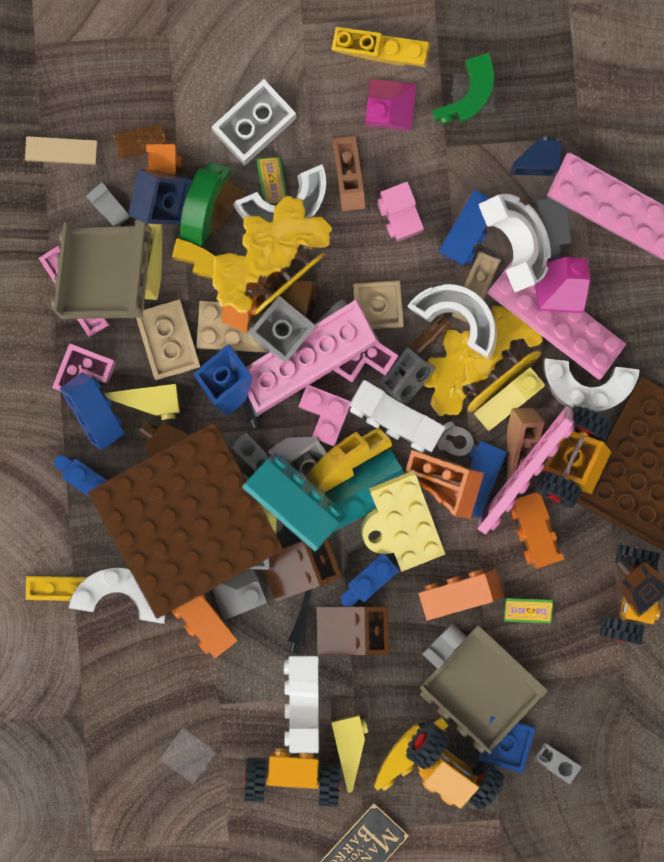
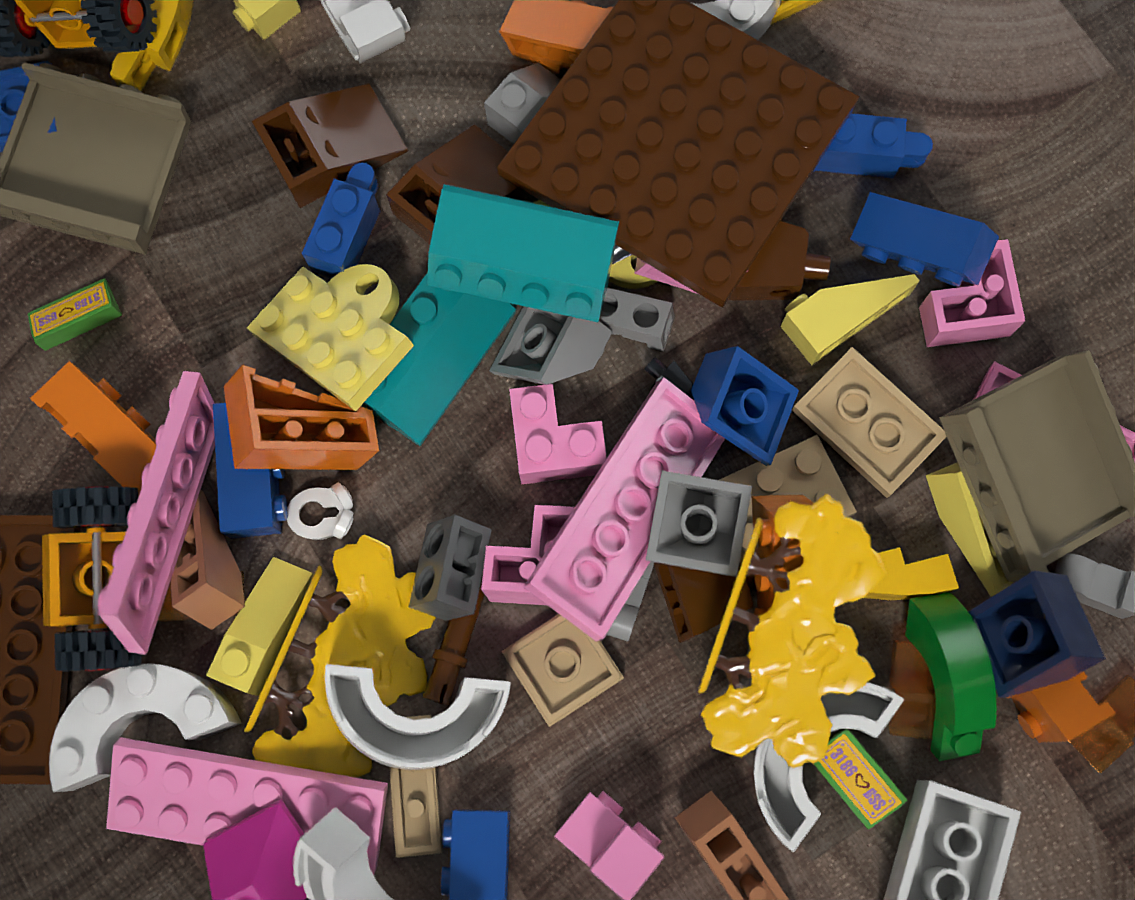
camera: 160 degrees right, 10 degrees down
(297, 635) = (414, 95): black piece -> none
(340, 460) = (486, 375): yellow slope -> none
(395, 417) = (430, 492): white brick -> none
(444, 645) = (180, 189): light grey leg -> none
(460, 593) = (185, 276): orange wedge -> none

